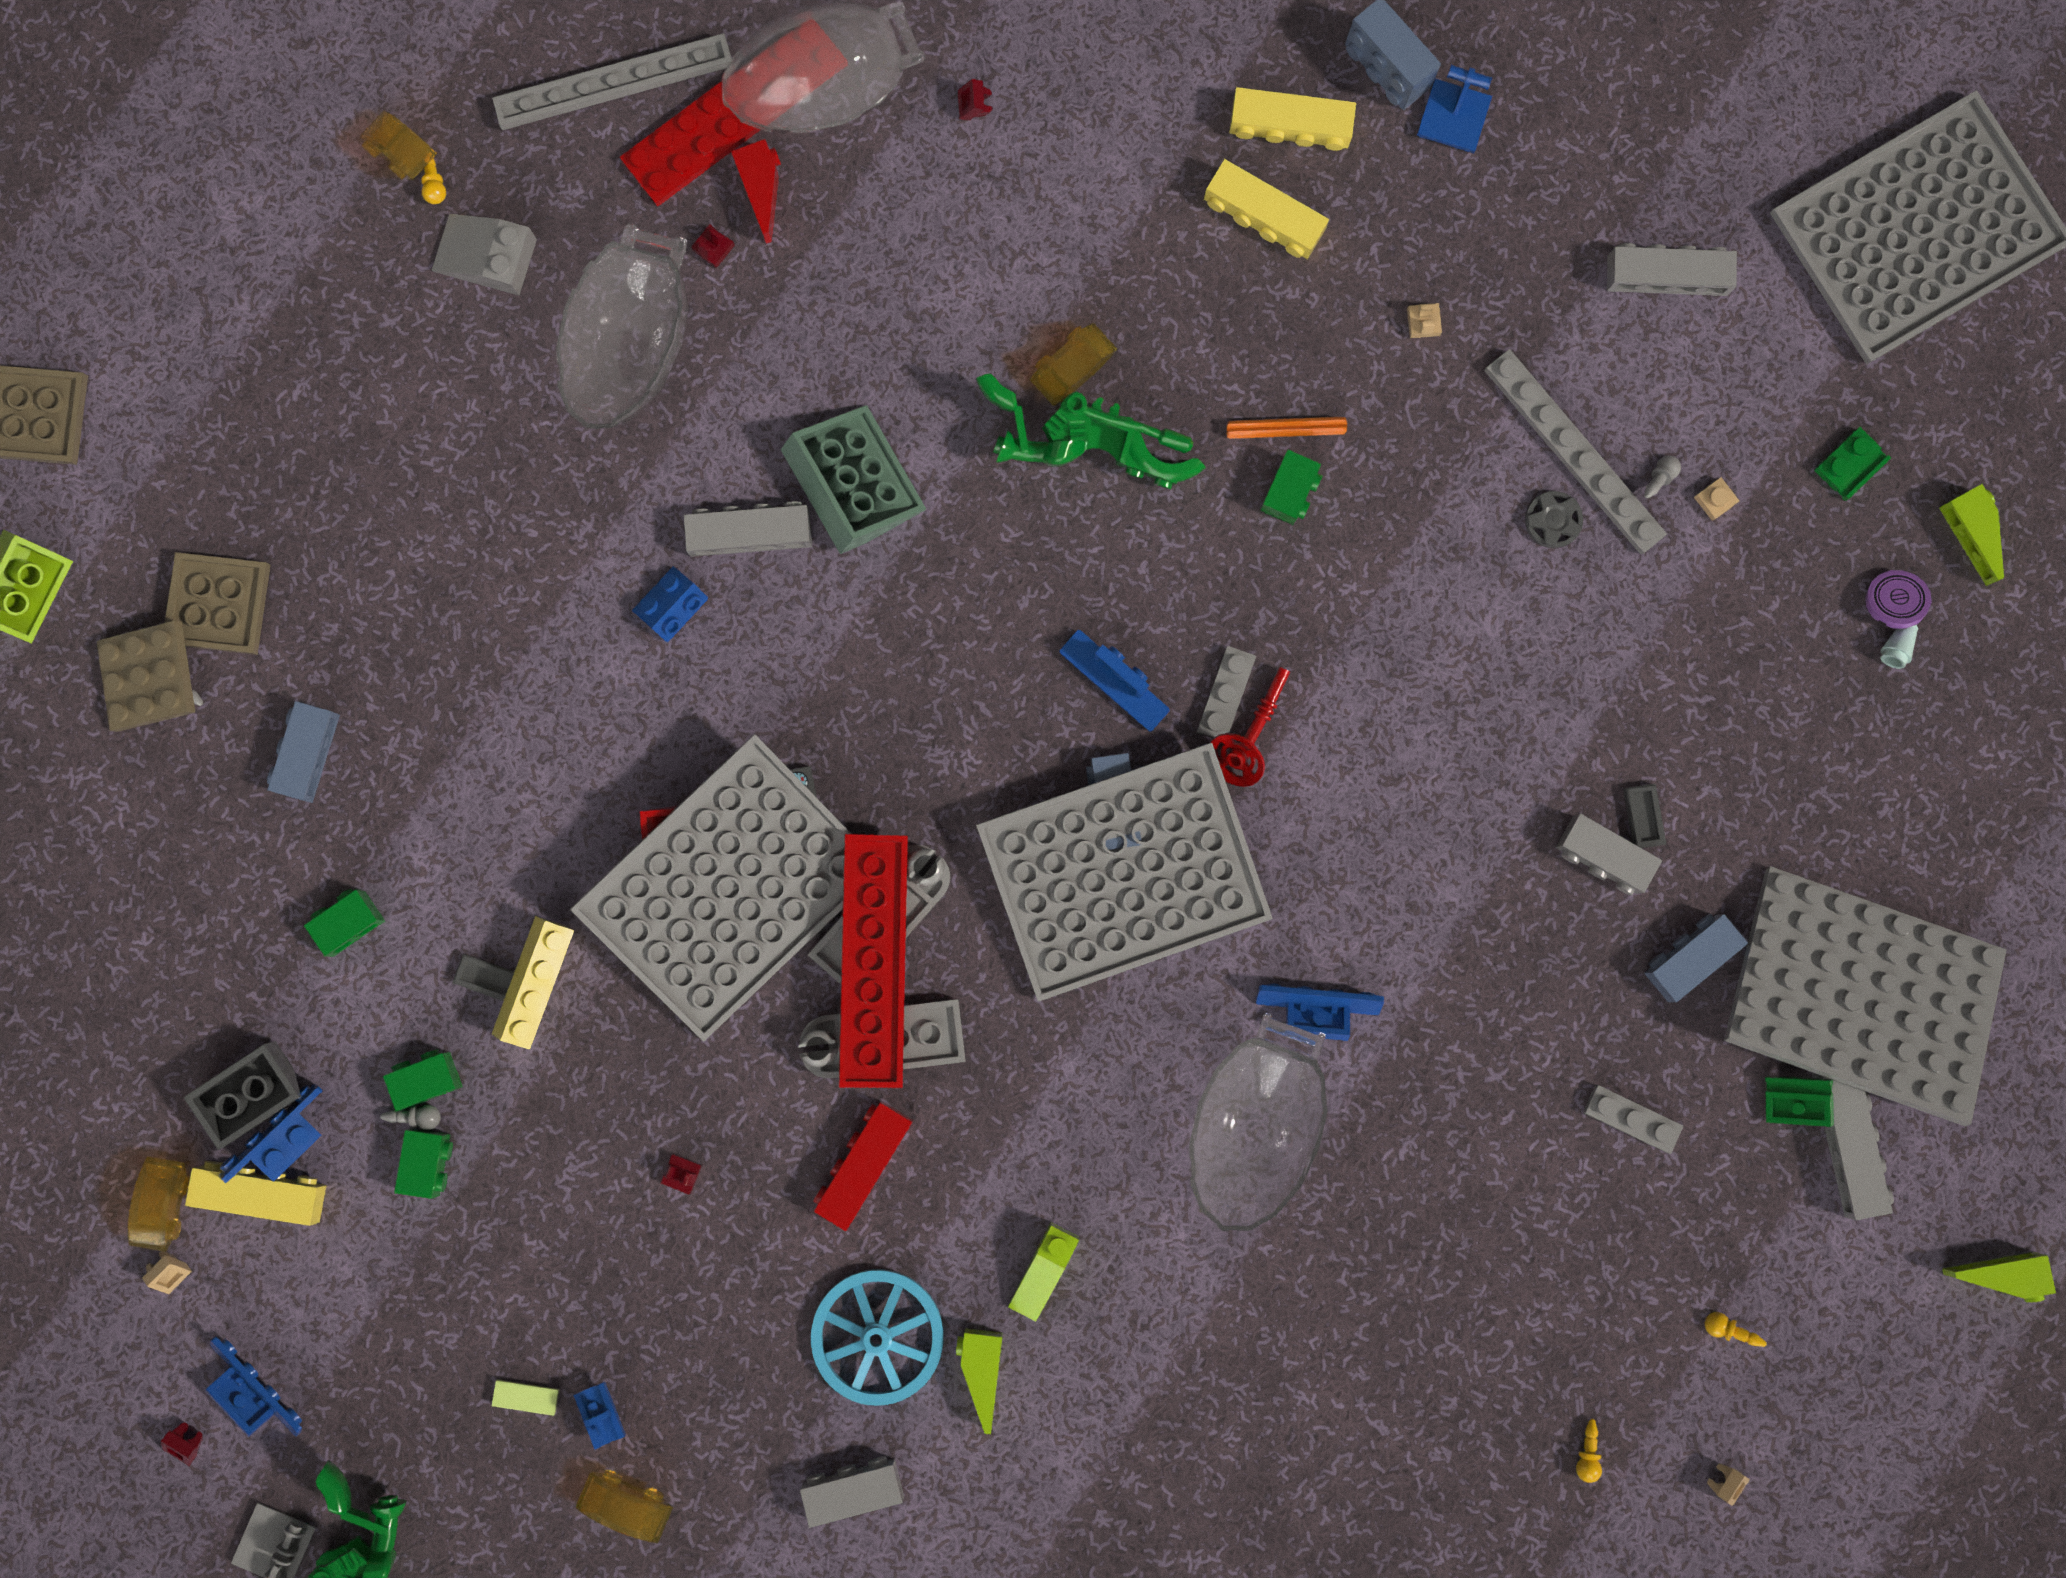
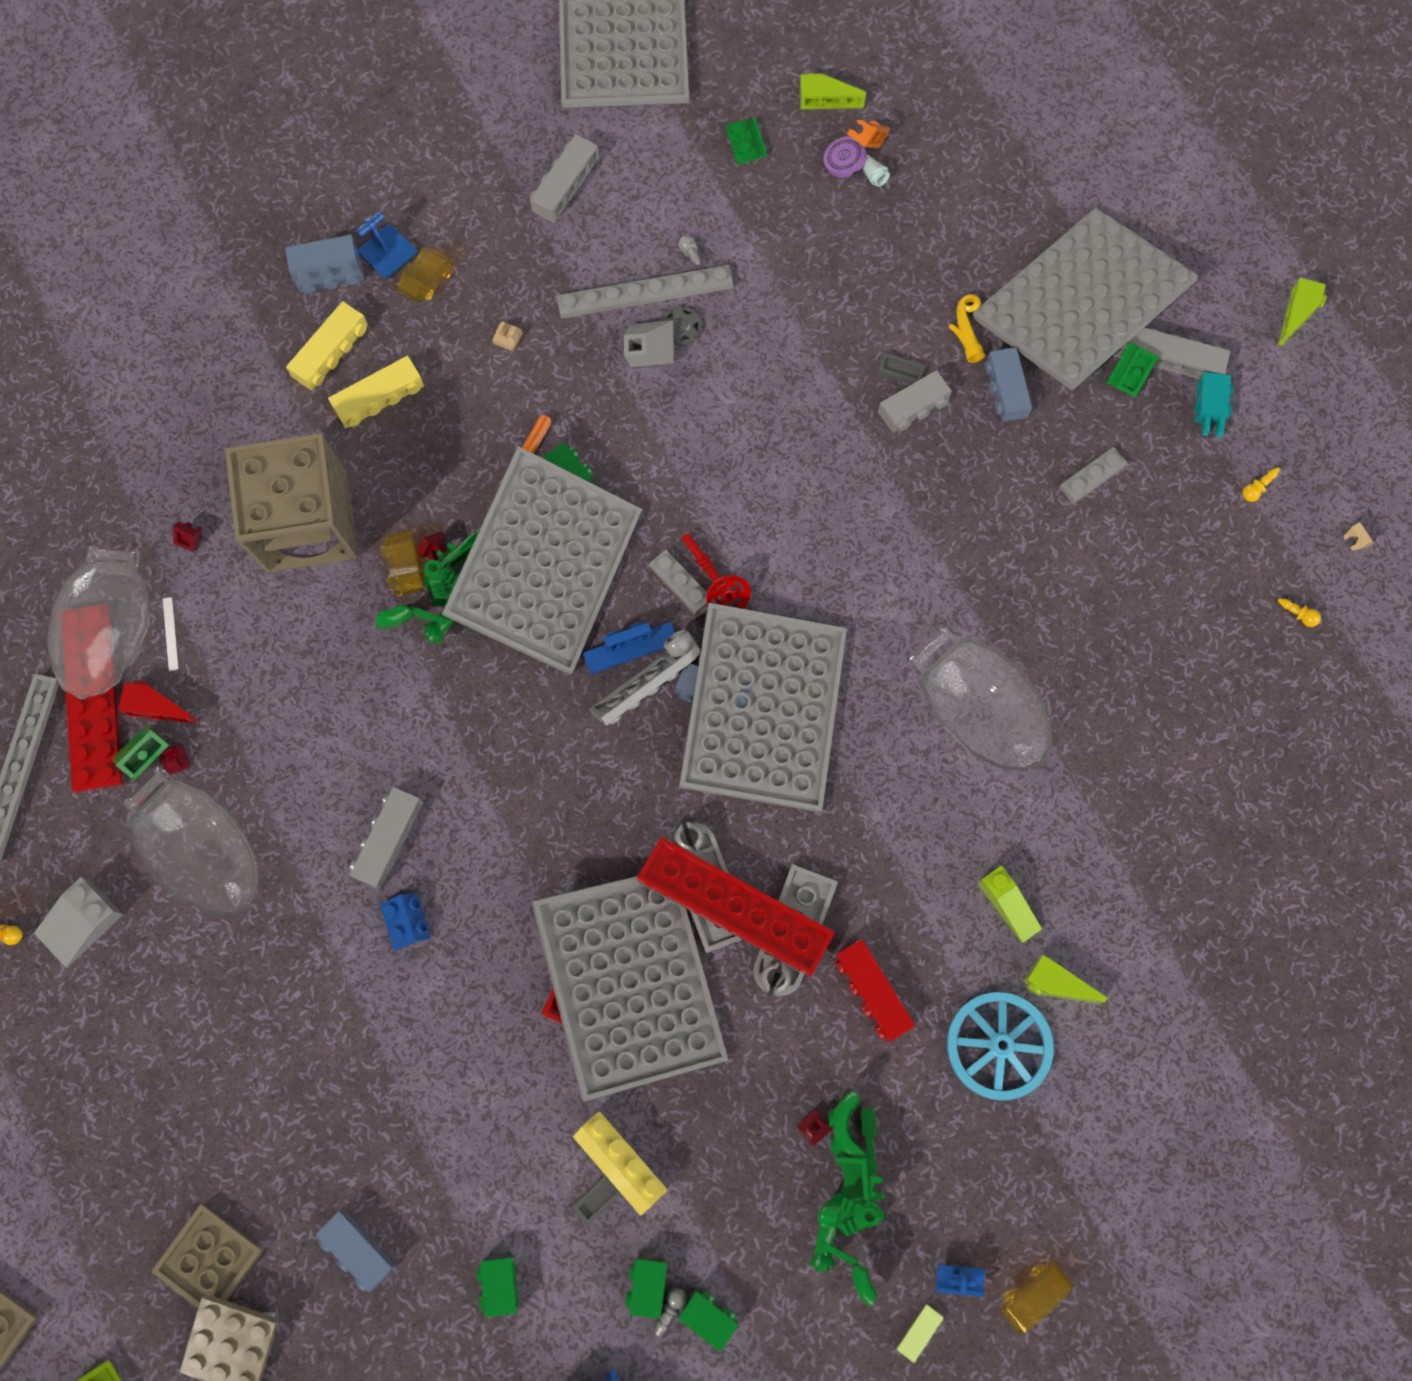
camera: 60 degrees left, 10 degrees down
(623, 1263) = (856, 1206): none -> green piece
(698, 204) = (140, 752): none -> green brick
(851, 1491) = (1102, 1121): light grey brick -> none
(852, 152) = (170, 634): none -> white sticker
(852, 478) = (392, 749): sand green slope -> none
(1064, 197) = (288, 498): none -> dark tan container
(1081, 721) = (679, 653): none -> light grey plate
(1110, 386) = (431, 545): none -> dark red tile
(1159, 522) = (542, 561): none -> light grey plate
(1320, 1010) = (922, 629): blue bracket -> none
(1448, 178) = (425, 274): none -> clear yellow brick
(1507, 494) = (649, 343): none -> light grey slope
(1716, 499) = (723, 226): tan plate -> none
(1737, 870) = (973, 350): none -> yellow plant
(1812, 1222) = (1213, 402): none -> teal hinge
(1940, 615) = (871, 135): none -> orange hinge

